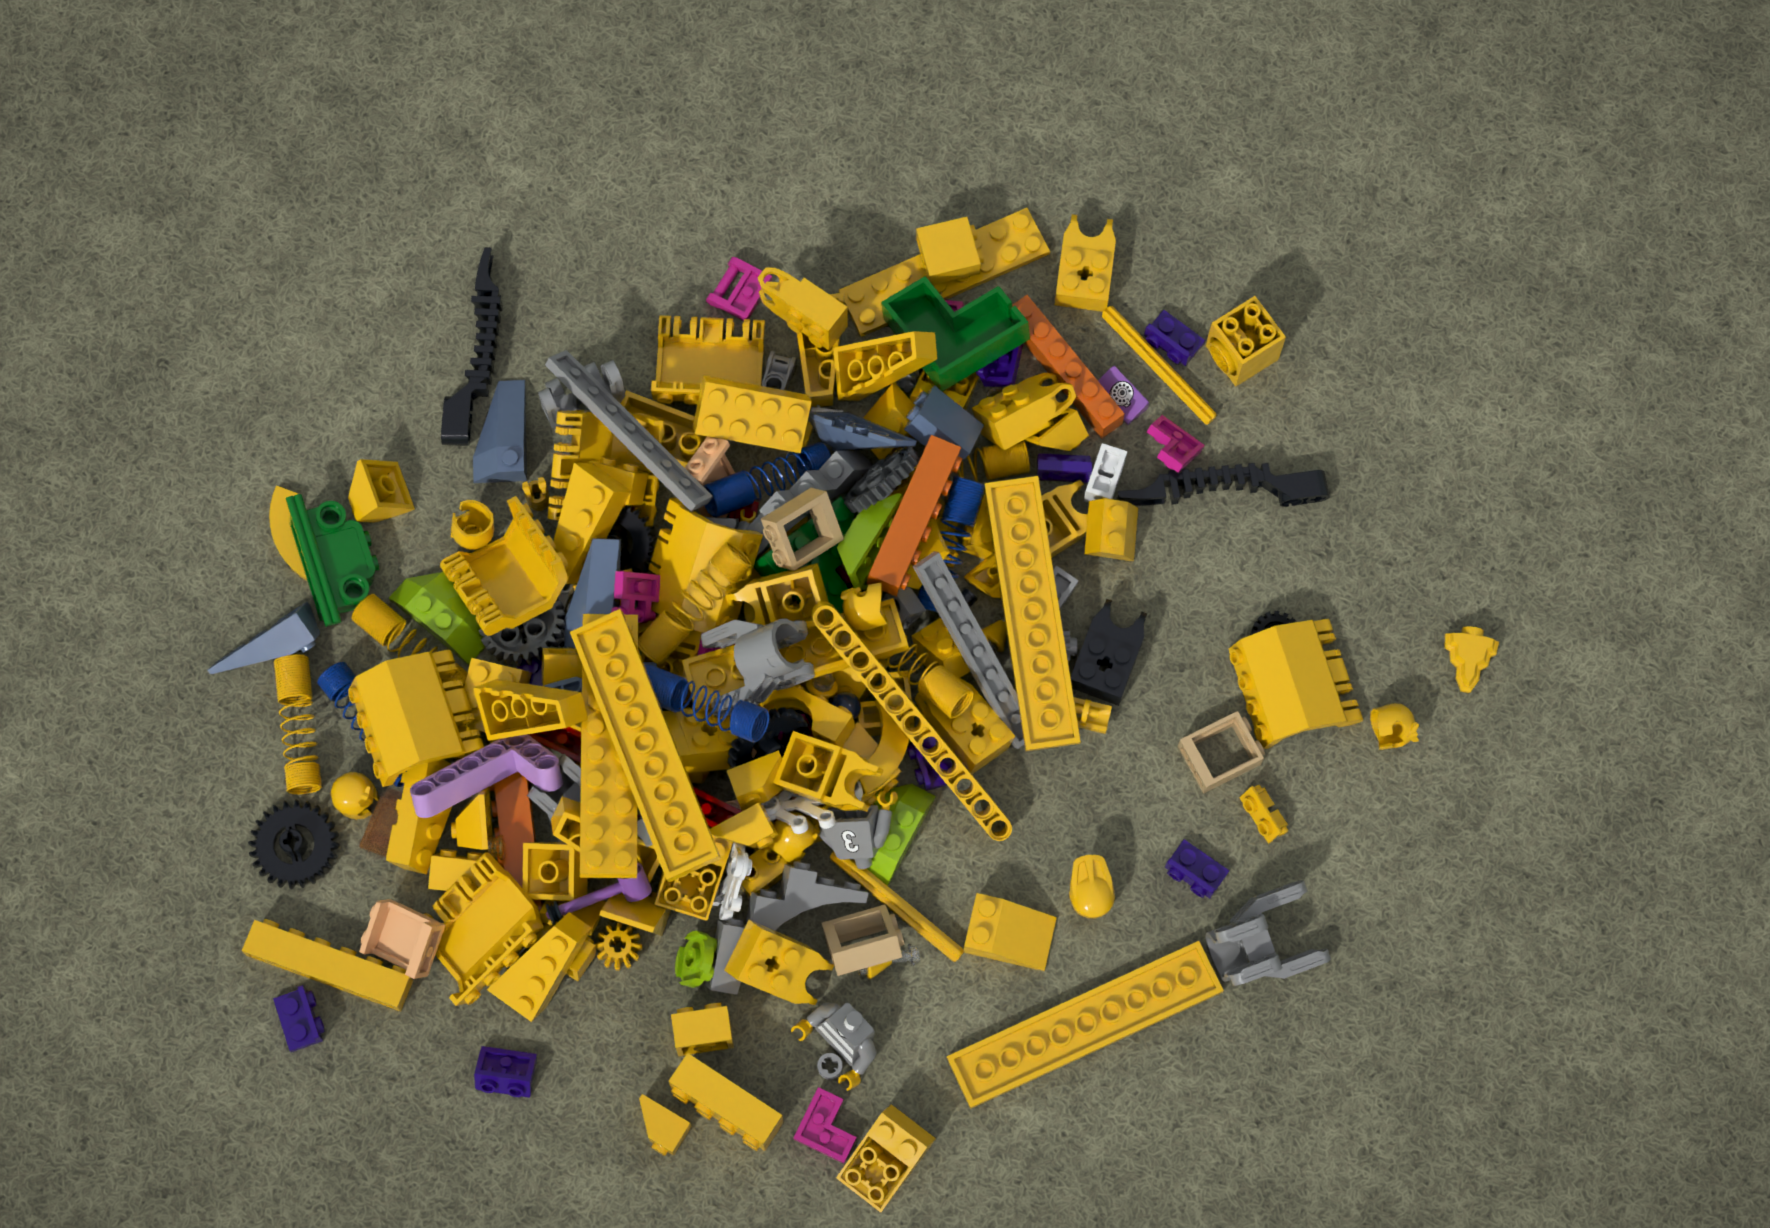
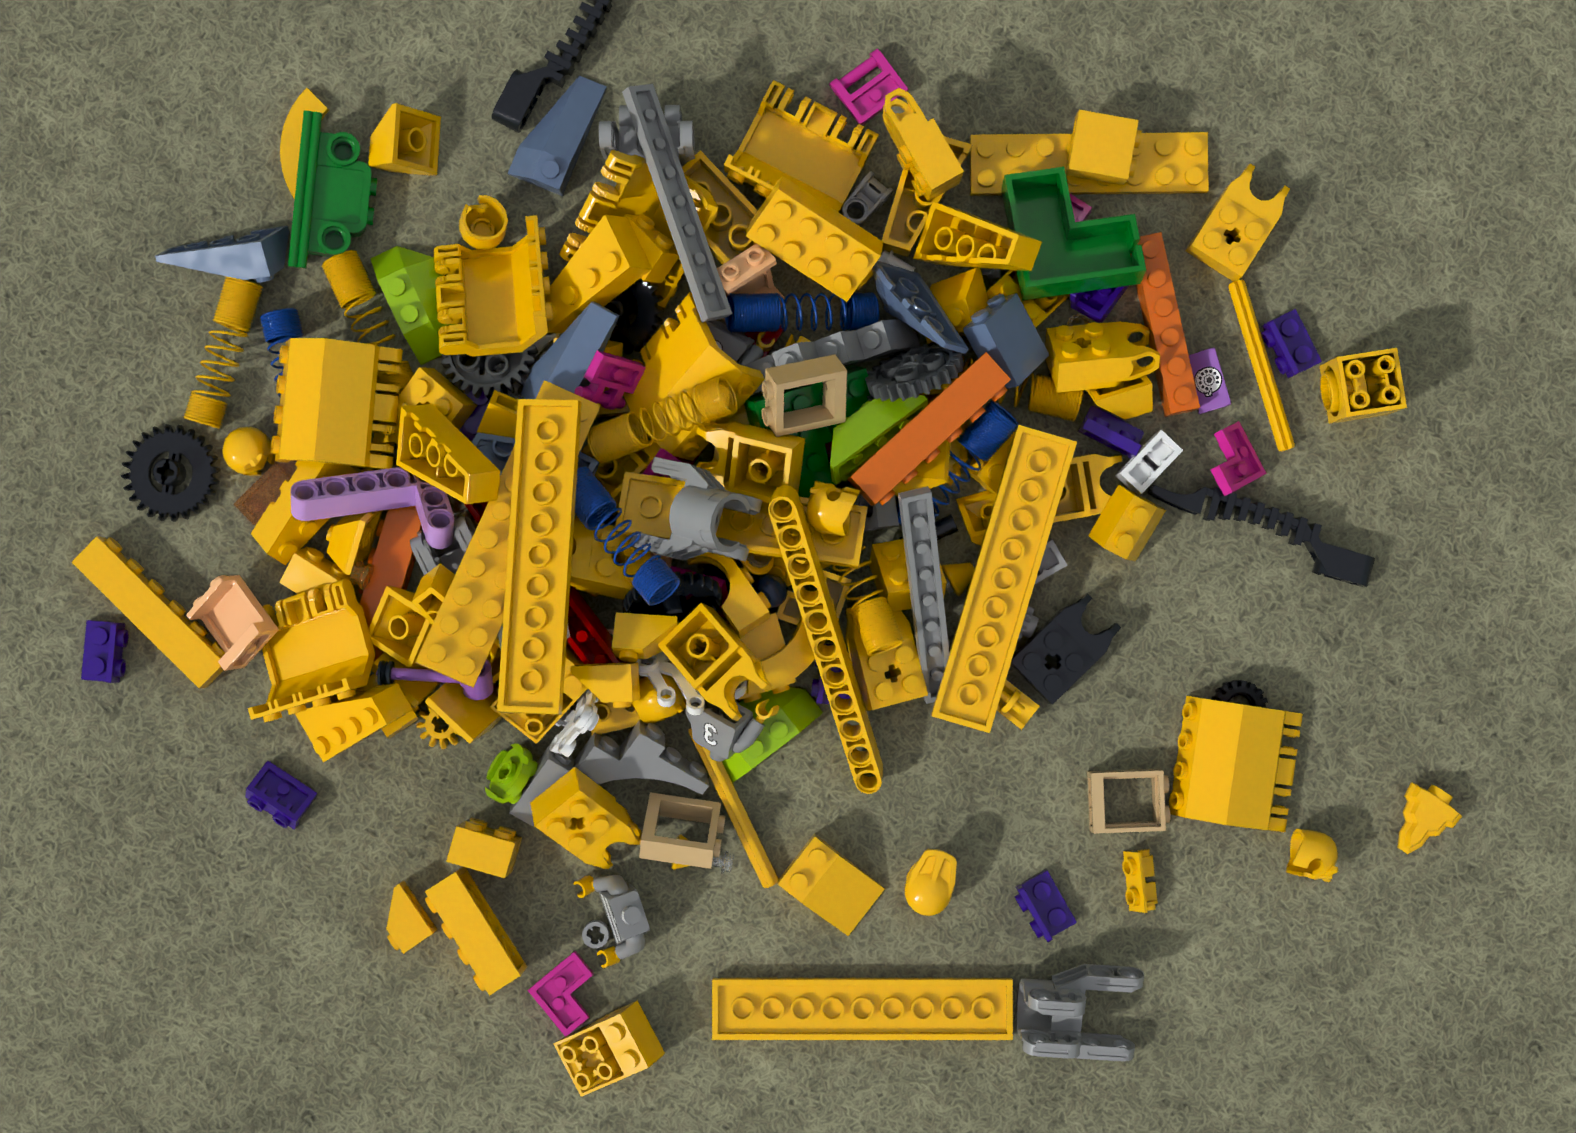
camera: 25 degrees right, 15 degrees up
(533, 487) = (557, 211): yellow hinge -> none

